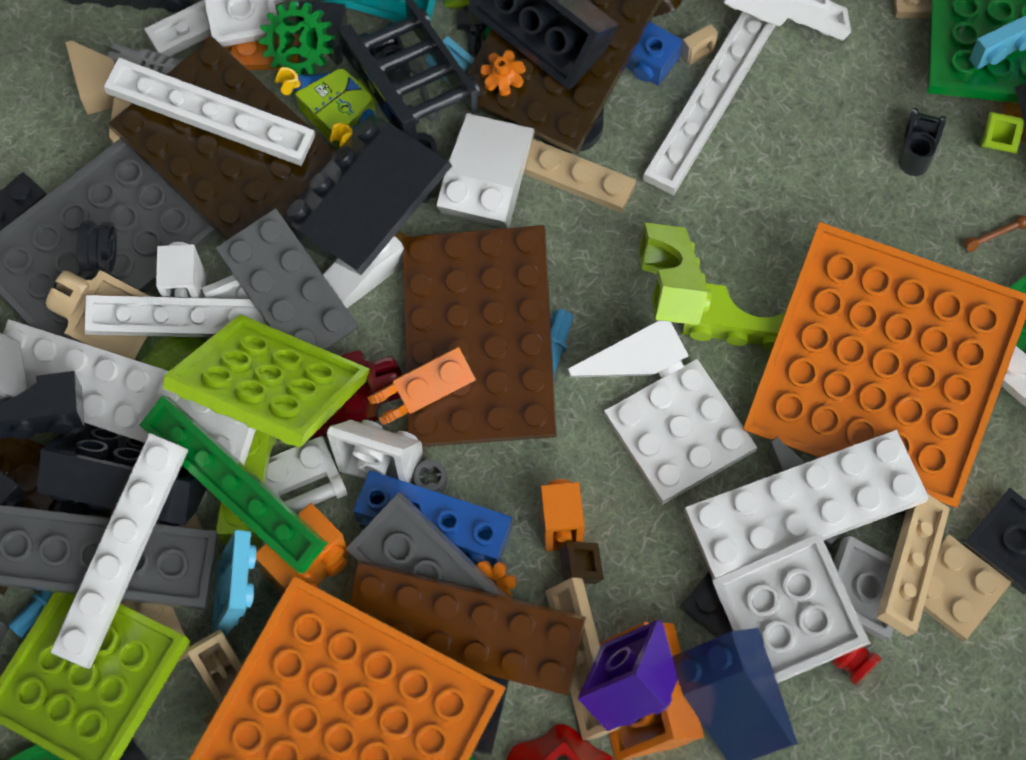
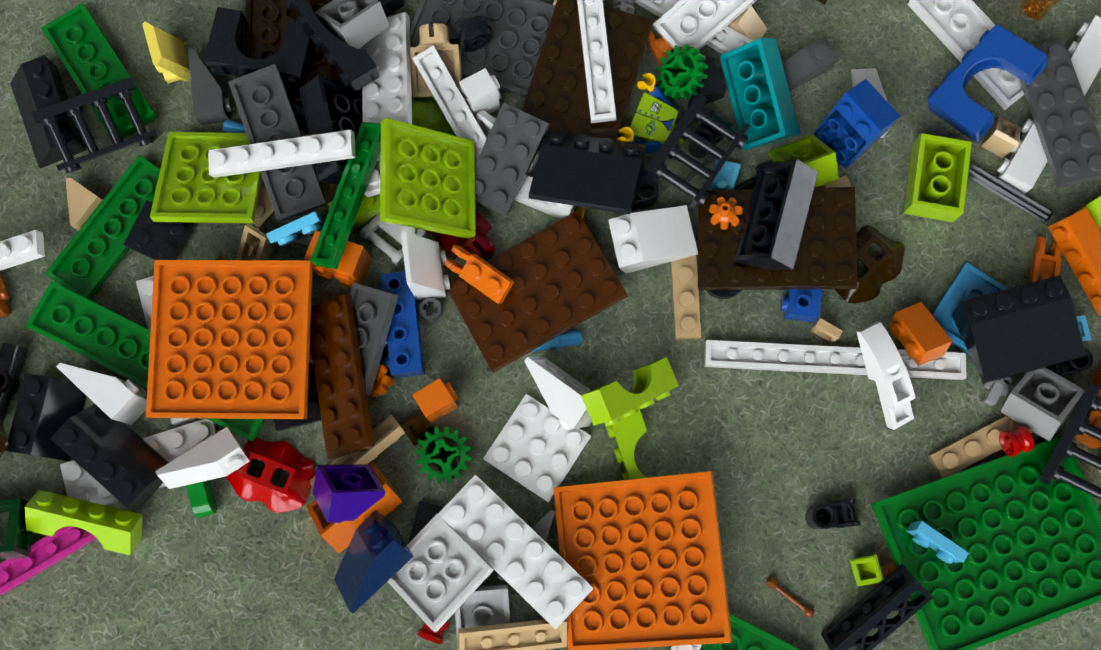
camera: 65 degrees right, 10 degrees up
(619, 551) = (439, 442): none -> green gear

